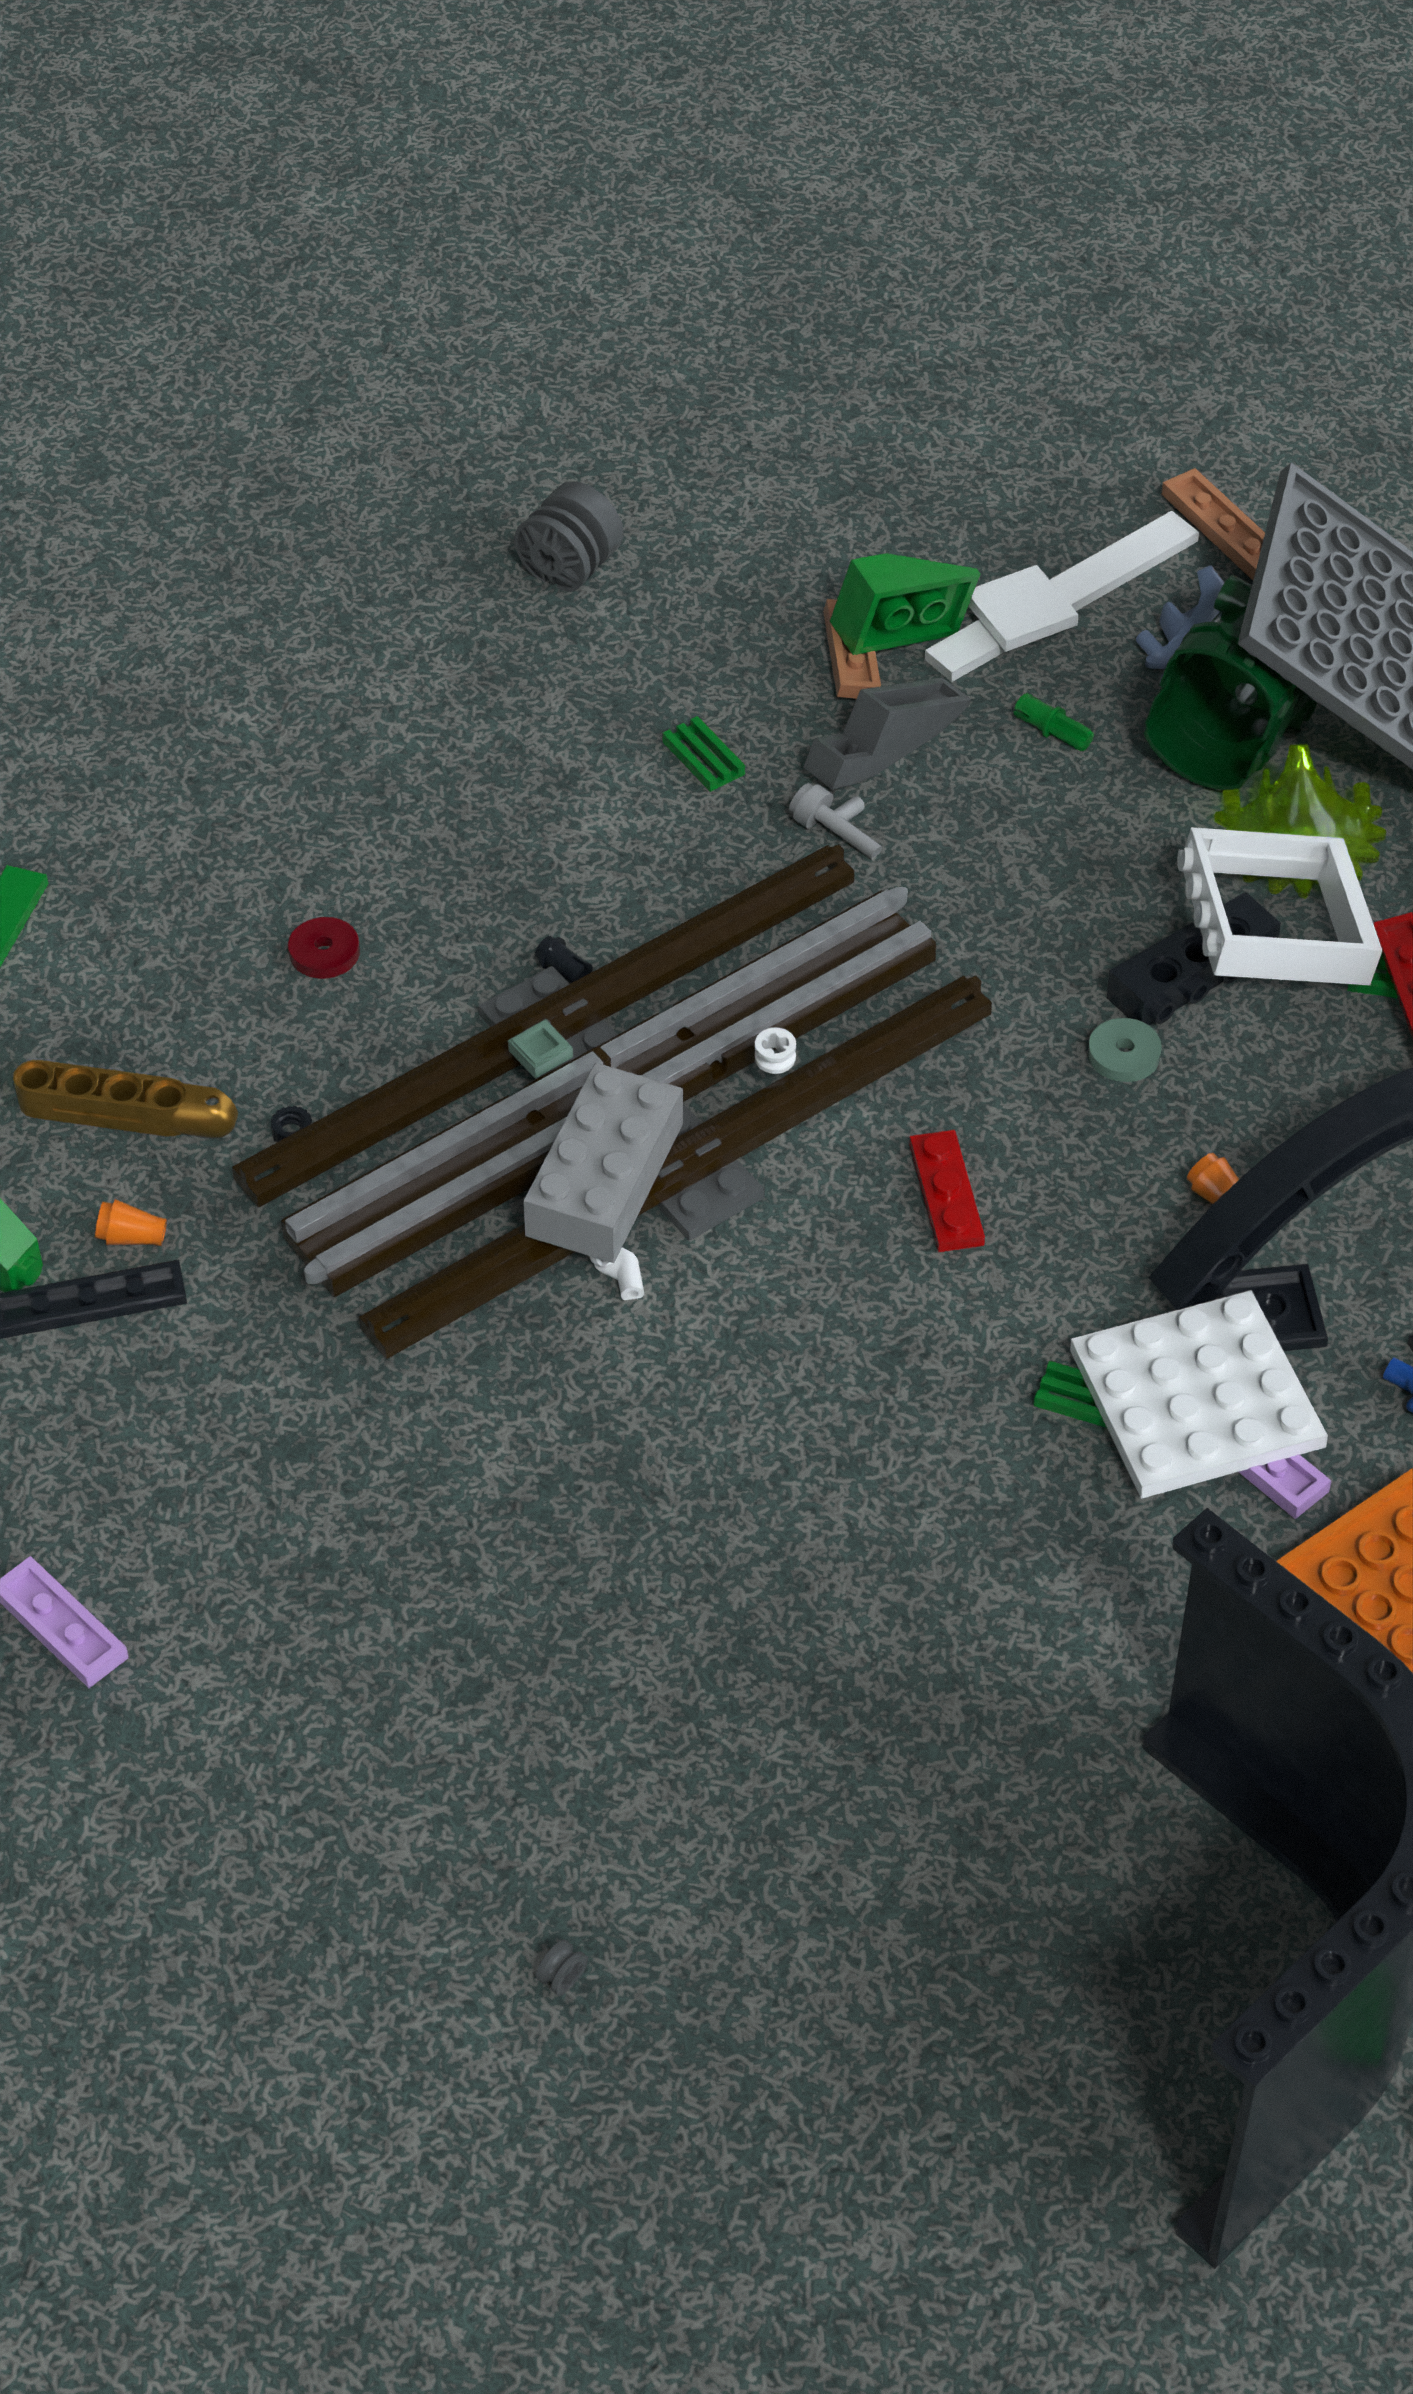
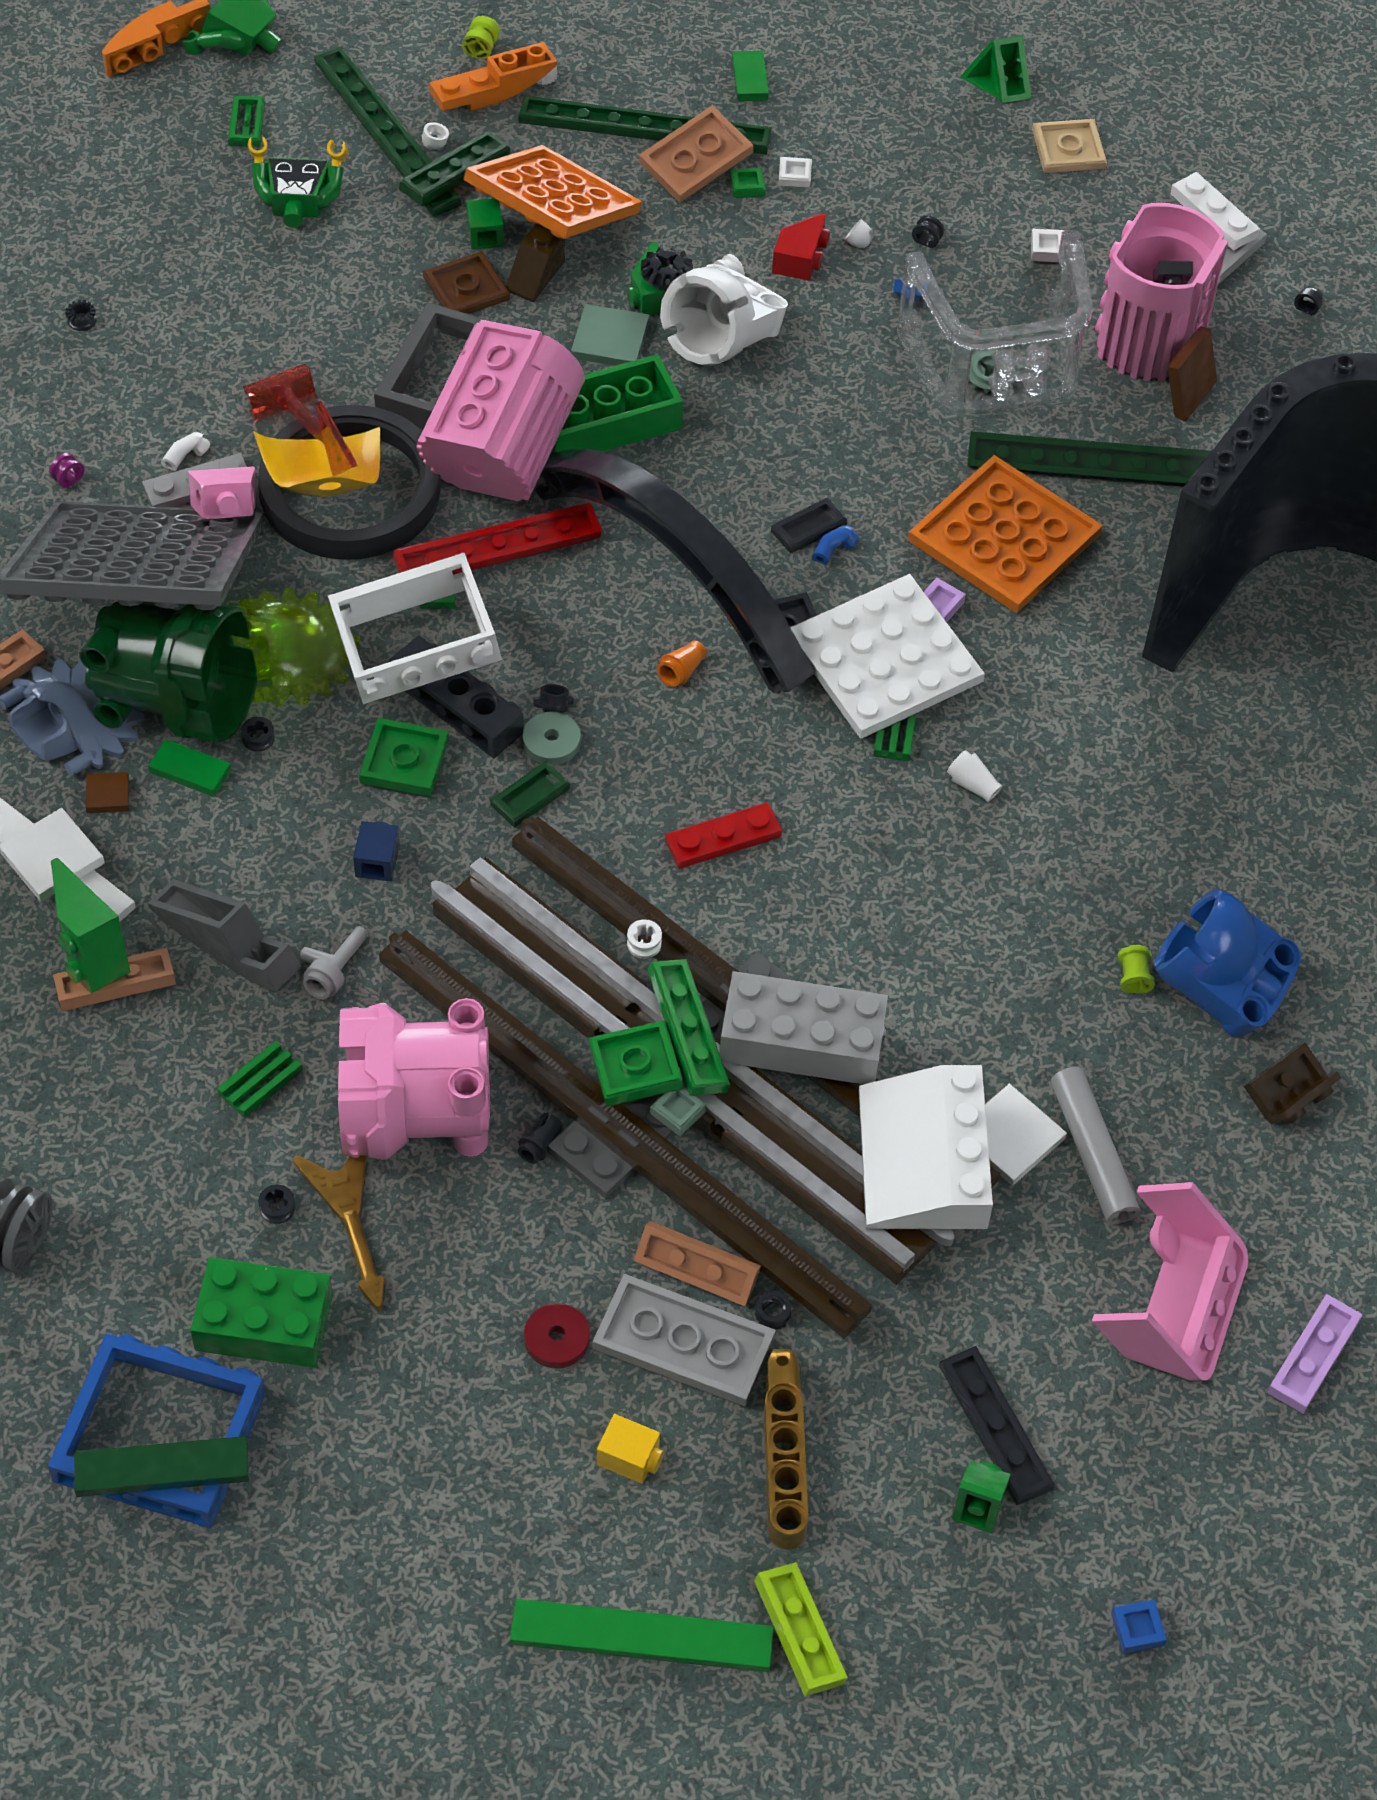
camera: 105 degrees left, 5 degrees up
(128, 1225) = (916, 1412): orange cone -> none
(158, 1513) = (1193, 1290): none -> bright pink windscreen
(168, 976) = (629, 1449): none -> yellow brick
(231, 653) = (174, 1502): none -> blue window
(261, 620) = (161, 1466): none -> dark green tile
(281, 1042) = (684, 1339): none -> light grey plate
(367, 1065) = (697, 1263): none -> nougat plate
(403, 1464) = (1095, 1146): none -> light grey piece
(410, 1258) = (926, 1150): none -> white slope
(416, 719) = (262, 1312): none -> green brick
(426, 1693) = (1290, 1085): none -> dark brown bracket
(449, 1390) = (1018, 1134): none -> white tile
(544, 741) = (271, 1193): none -> black bush
(548, 804) = (343, 1194): none -> pearl gold piece
(604, 1013) = (635, 1063): none -> green tile
(609, 1648) = (1231, 965): none -> blue piece
(637, 829) = (413, 1080): none -> bright pink piece
(644, 1566) = (1136, 969): none -> lime bush
(677, 1063) = (688, 1027): none -> green tile
(977, 866) = (376, 851): none -> dark blue brick
(987, 1458) = (973, 775): none -> white cone
(1043, 1020) = (530, 794): none -> dark green tile
(1053, 722) = (186, 822): green axle -> none
(1109, 667) = (107, 792): none -> reddish brown piece
(1112, 909) = (404, 757): none -> green plate
(1124, 739) = (189, 768): none -> green tile
(1170, 802) = (265, 739): none -> black bush
(1179, 1053) = (553, 698): none -> black plate

